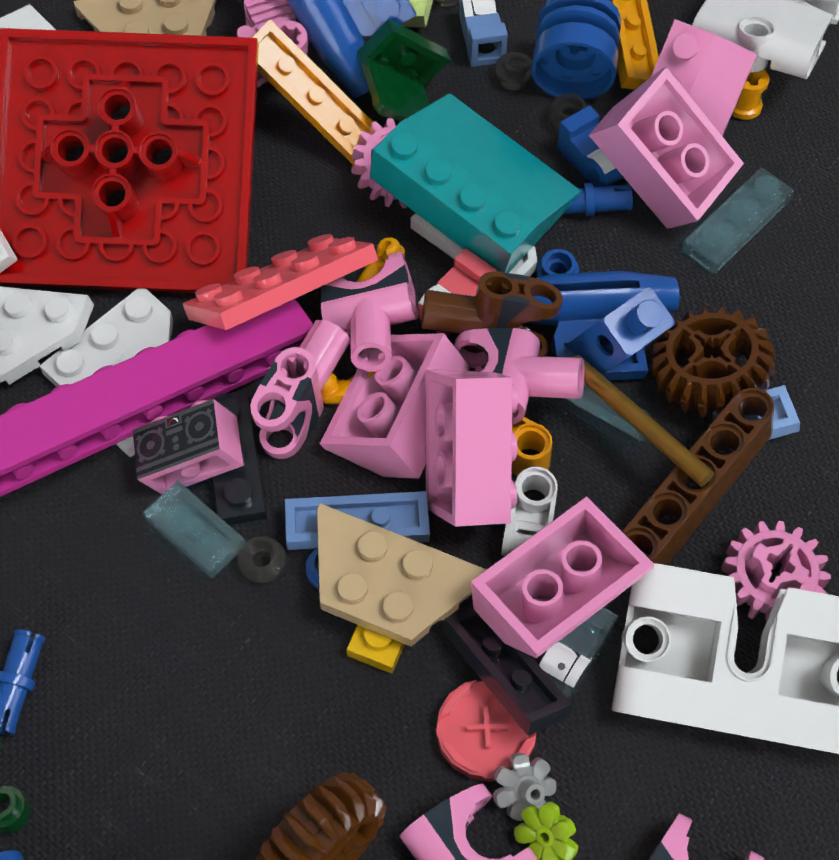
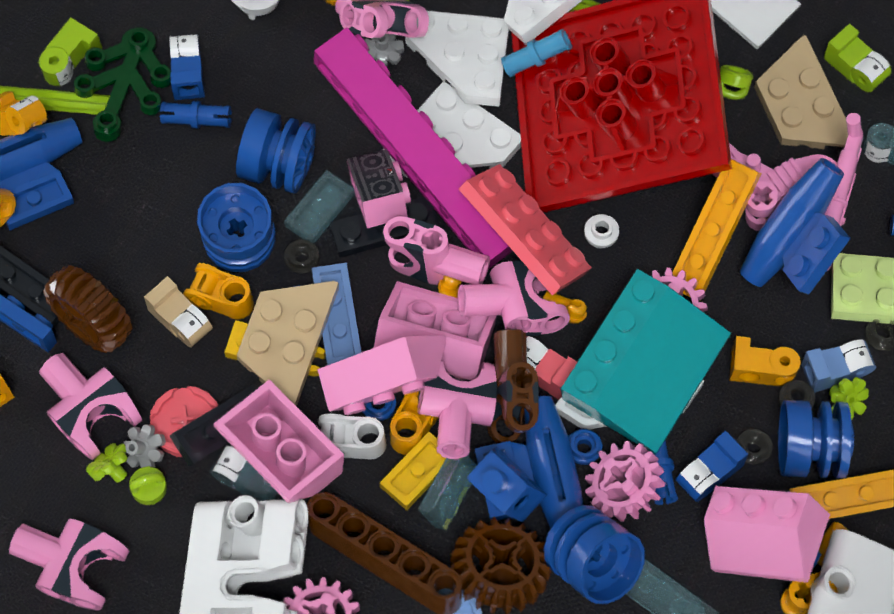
camera: 85 degrees right, 5 degrees up
(36, 243) = (536, 52): none -> dark azure pin
(106, 565) = (269, 149): none -> blue wheel
(208, 600) = (233, 209): none -> blue wheel
(286, 231) = (597, 239): none -> white plate
(296, 674) = (214, 288): none -> light orange piece
(327, 725) = (177, 313): none -> tan leg
(397, 69) = (750, 297): dark green bracket -> none
(476, 82) = (762, 364): none -> light orange leg
(520, 24) = (851, 392): none -> lime plant
(579, 443) = (414, 472): none -> yellow plate
(579, 786) = (148, 485): none -> lime tile
(625, 217) = (641, 477): none -> bright pink gear
(646, 426) = (426, 500): pearl gold bar -> none
(667, 150) = (695, 513): bright pink slope -> none
(711, 255) = (594, 554): none -> blue wheel

